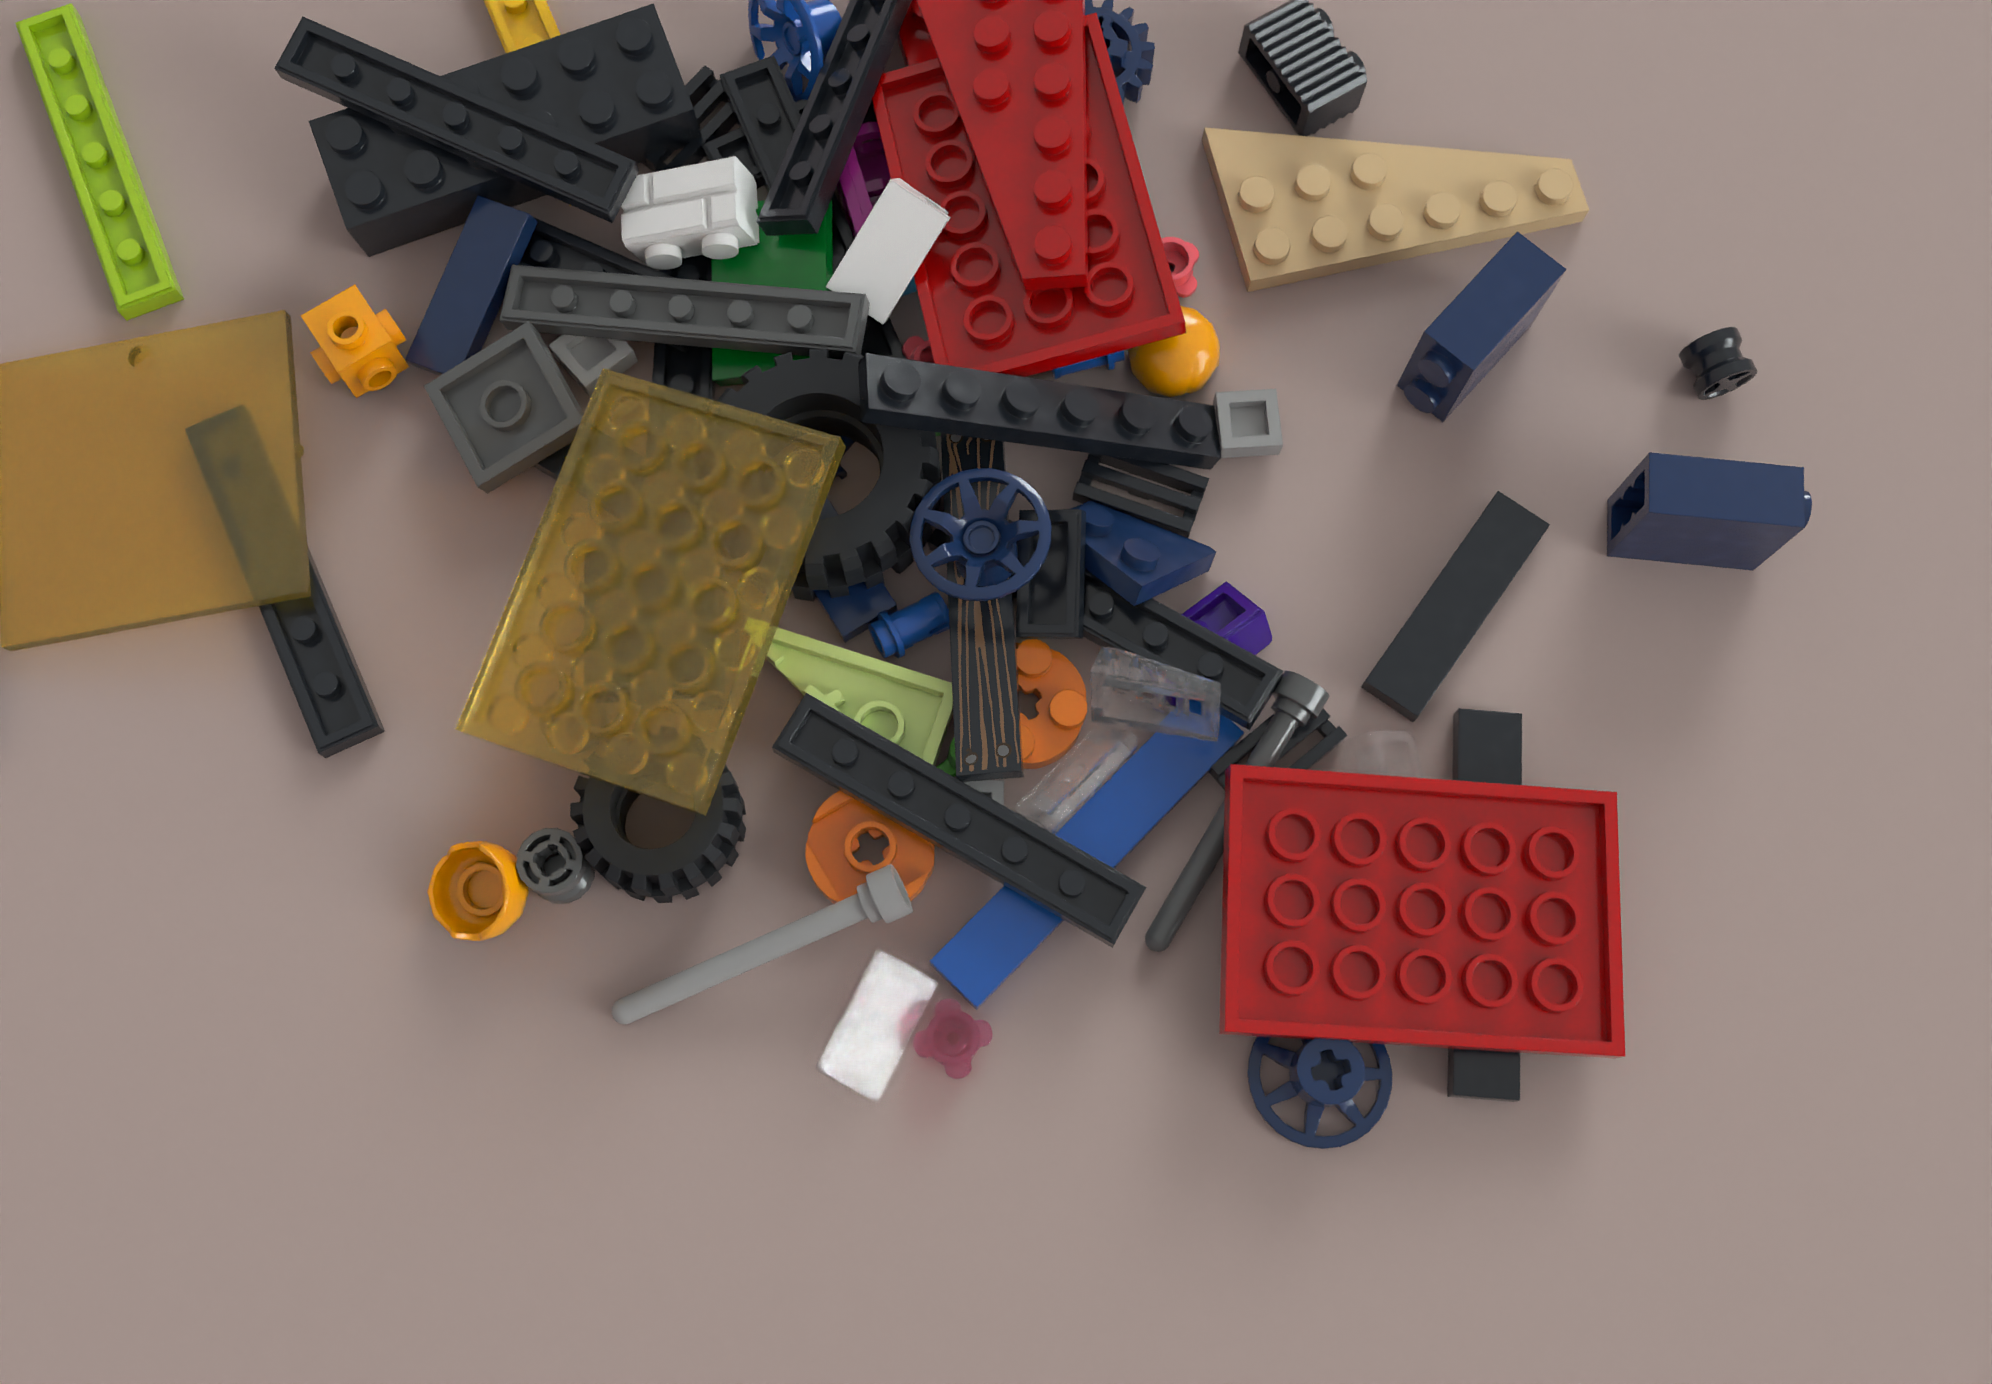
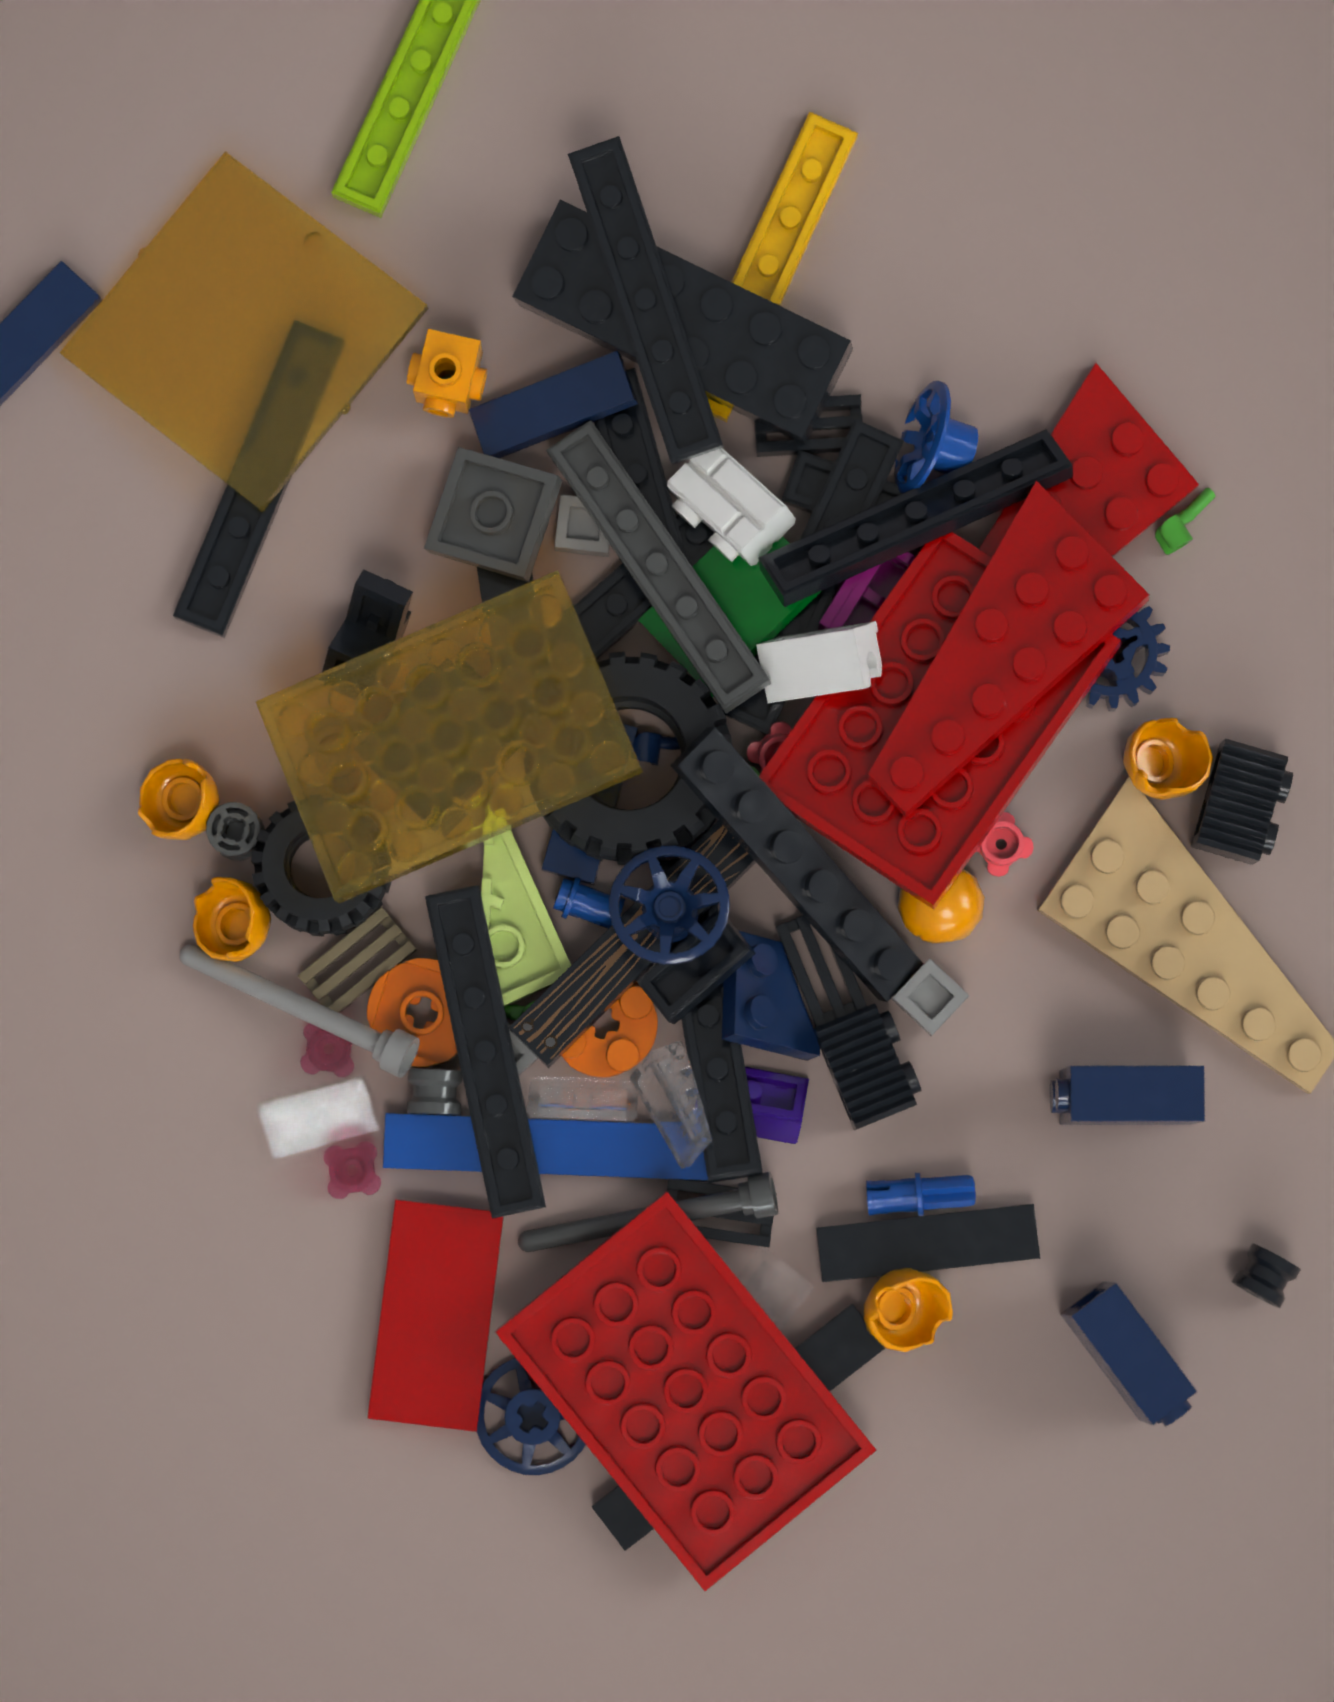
camera: 50 degrees right, 10 degrees up
(486, 569) = (374, 618): none -> black brick
(627, 940) = (230, 920): none -> light orange hair
(777, 813) = (348, 942): none -> dark tan tile
(825, 980) = (317, 1060): none -> clear pink plate
(950, 898) = (434, 1092): none -> dark grey wheel
(1154, 1083) = (435, 1316): none -> red tile
(1221, 86) = (1167, 758): none -> light orange hair
(1262, 519) = (866, 1065): none -> black brick
(1409, 573) = (920, 1194): none -> blue axle
(1504, 663) = (906, 1309): none -> light orange hair

